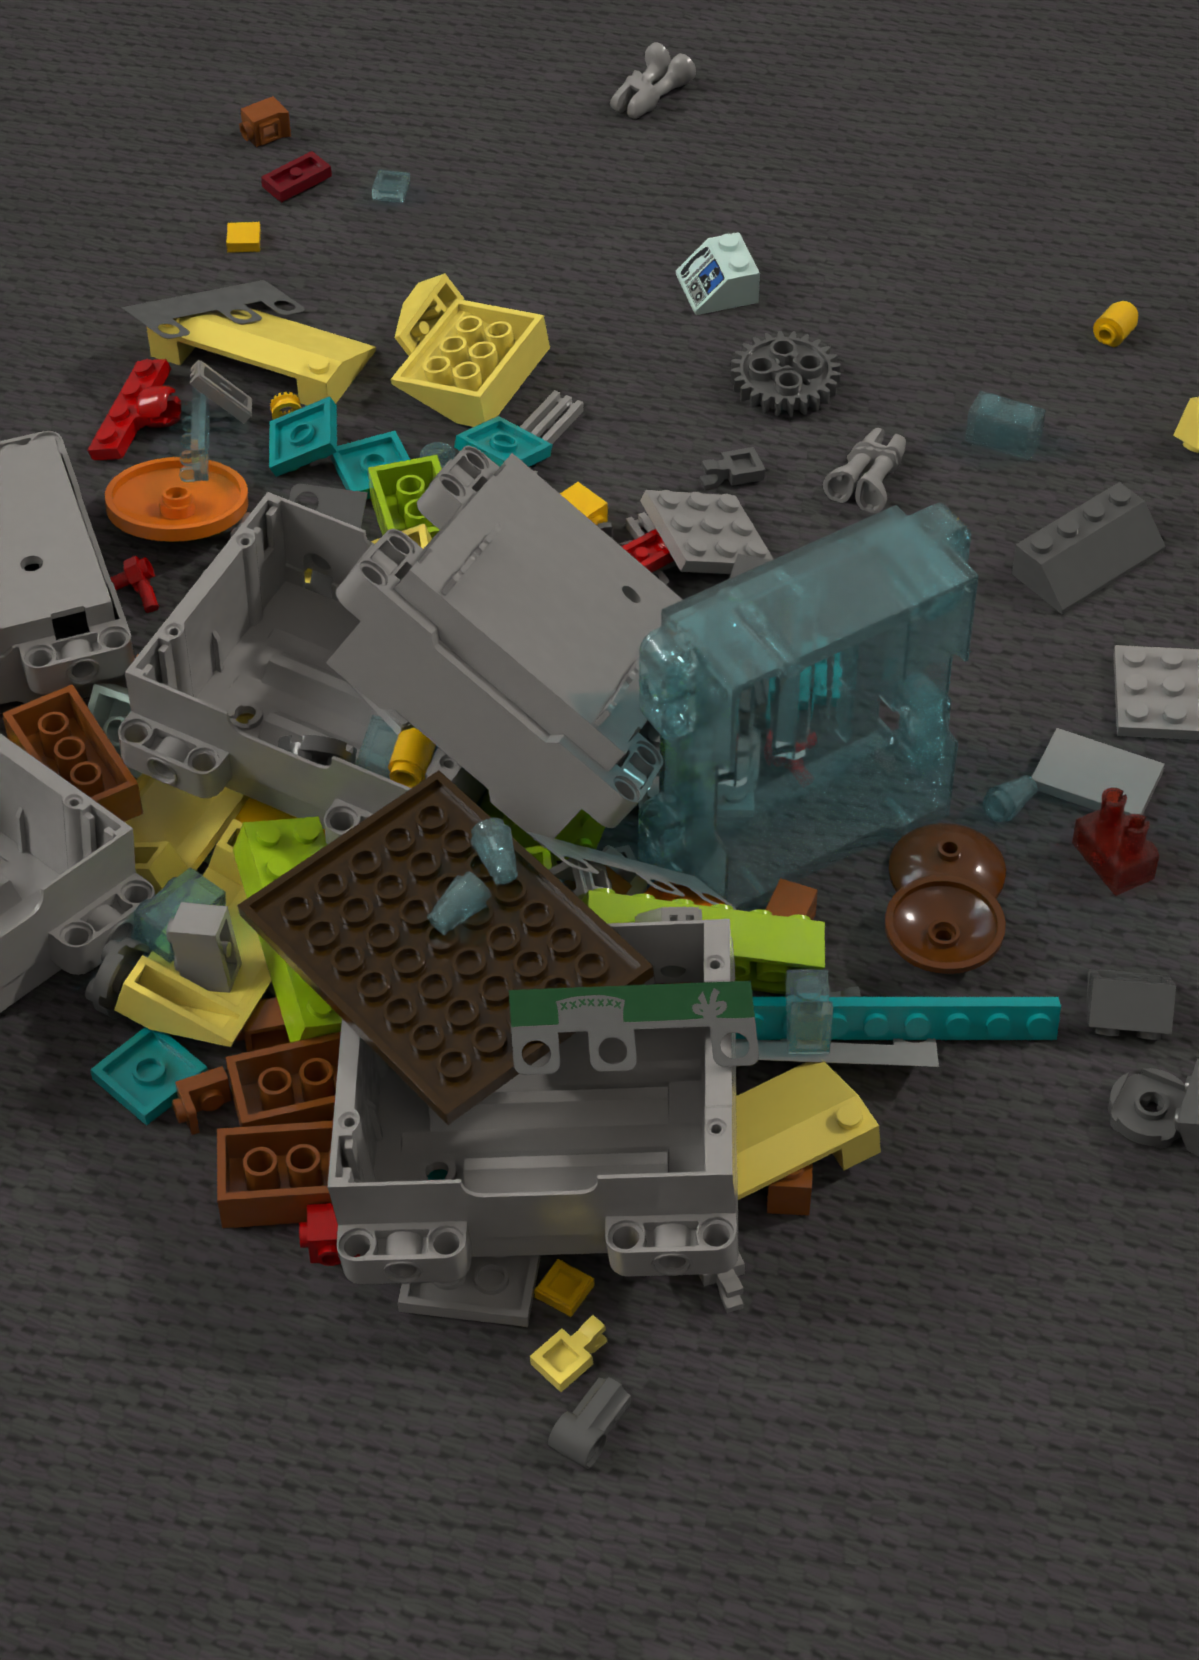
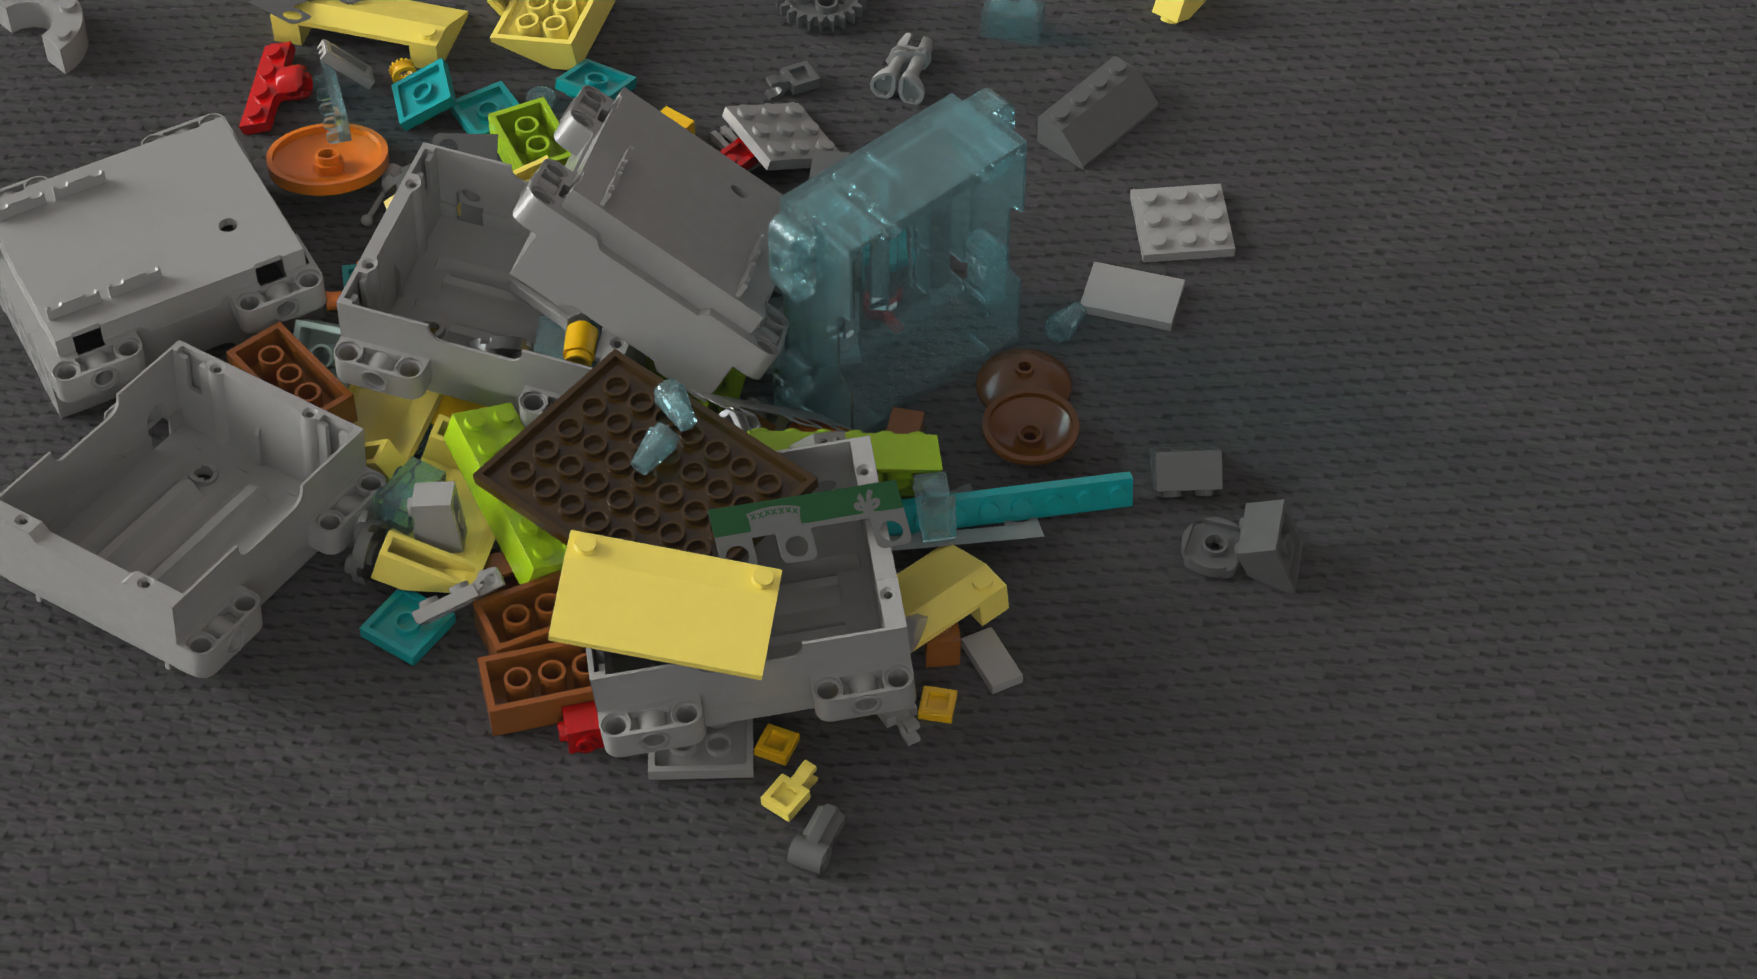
camera: 10 degrees left, 0 degrees up
(138, 574) = (307, 225): red piece -> none
(198, 1093) = (454, 634): dark orange bracket -> none
(213, 1048) = (461, 596): none -> light grey hinge
(435, 1105) = (665, 605): none -> light yellow slope
(548, 412) = (639, 42): light grey tile -> none
(752, 1169) = (915, 625): none -> light grey tile
(772, 1263) = (937, 704): none -> yellow tile
(849, 1215) = (992, 660): none -> light grey tile
(1116, 844) = (1156, 347): clear red brick -> none

